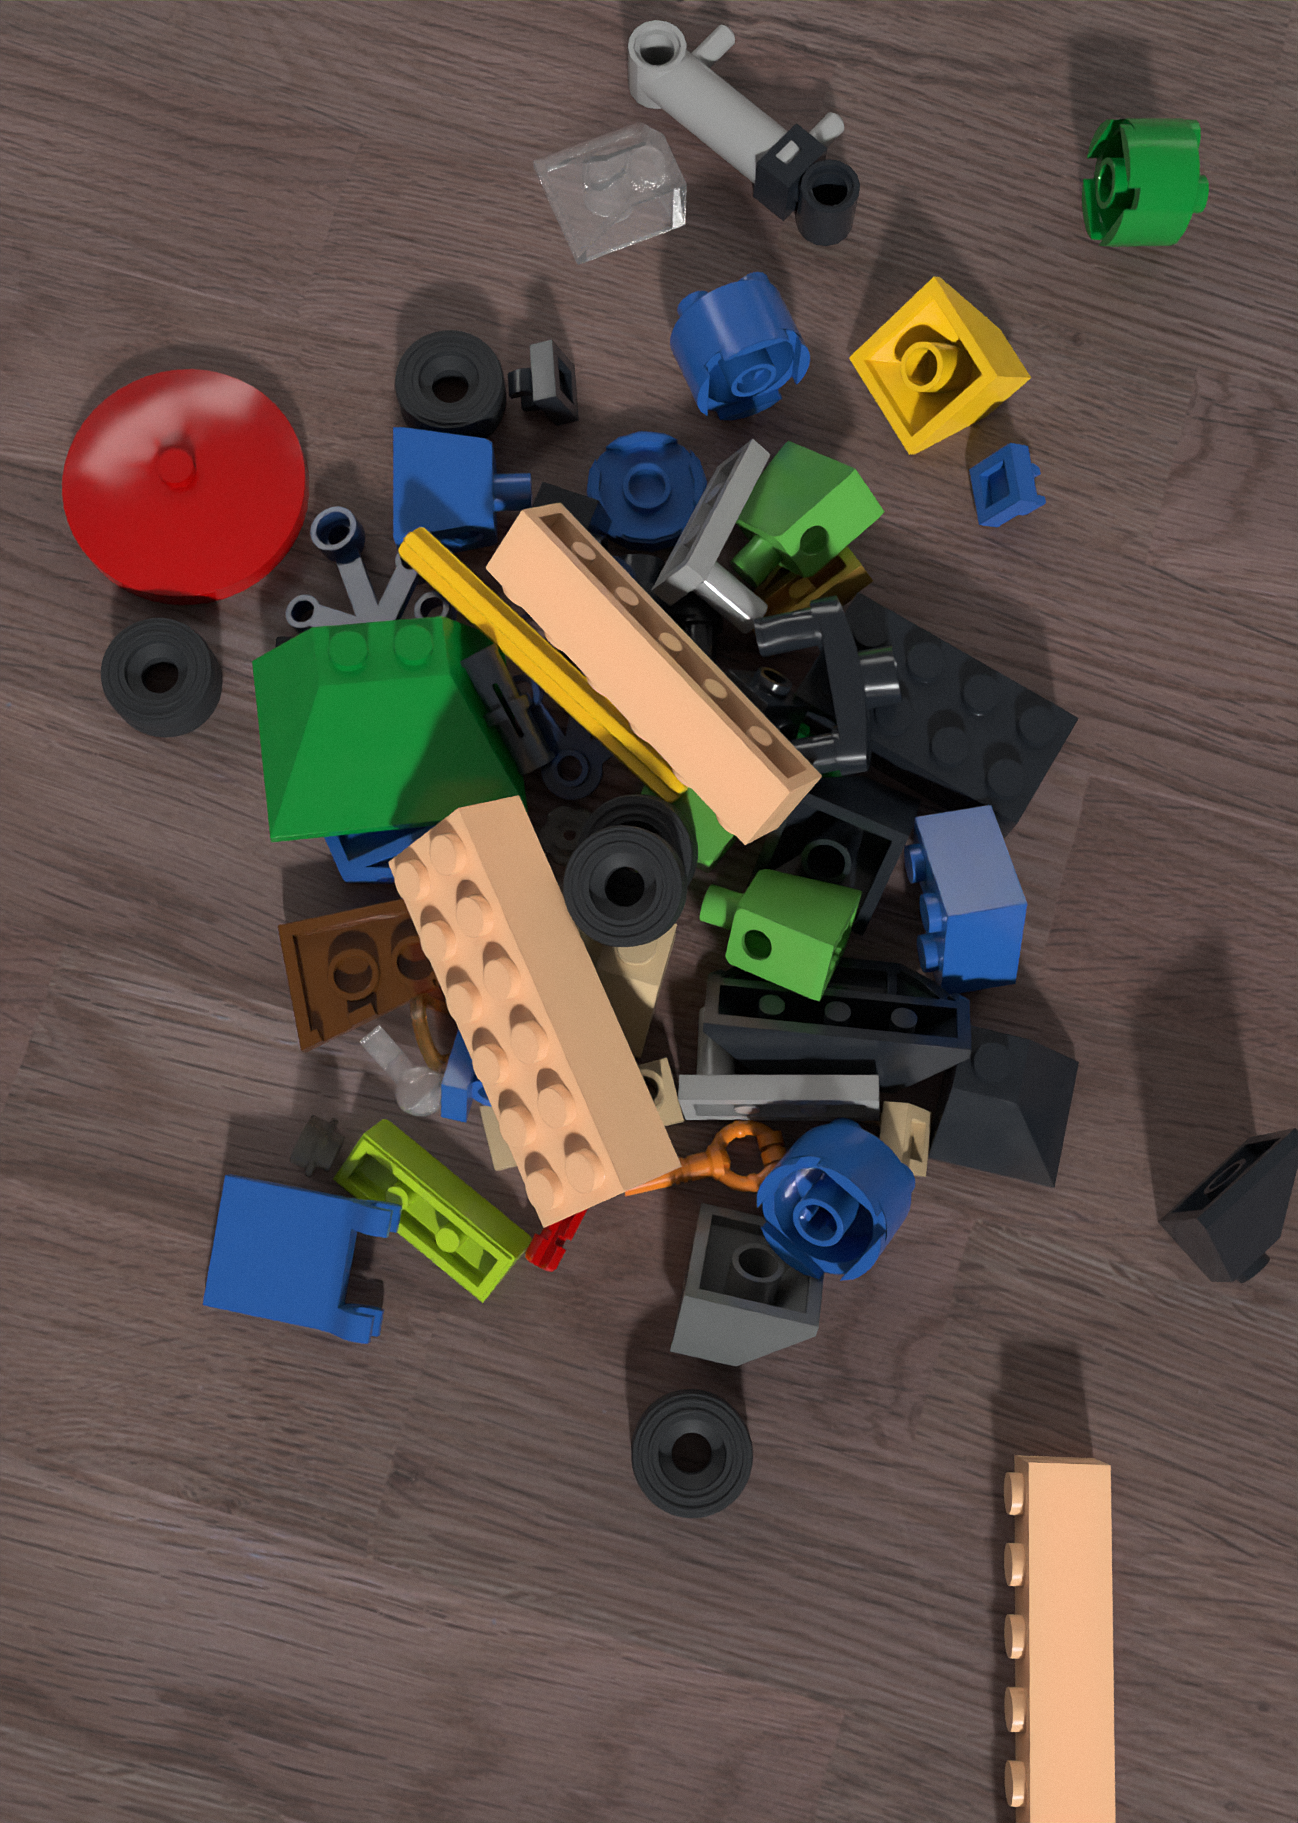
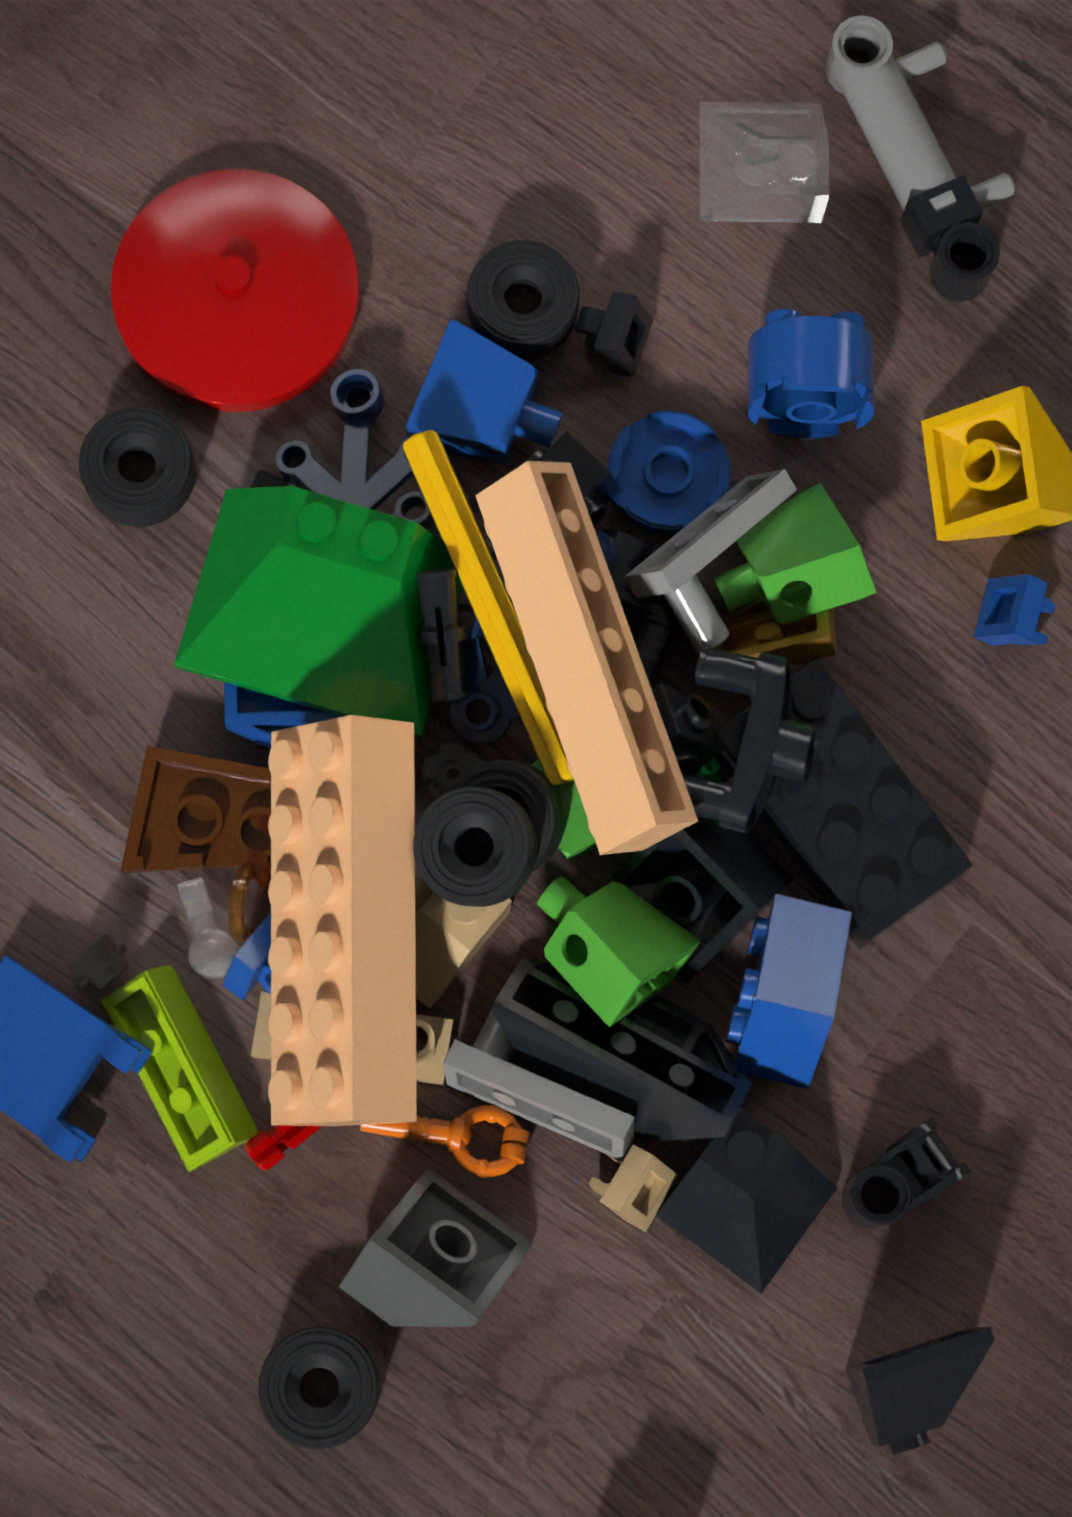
camera: 20 degrees right, 0 degrees up
(835, 1200) = (546, 1214): blue brick -> none
(1142, 1018) = (911, 1170): none -> black piece

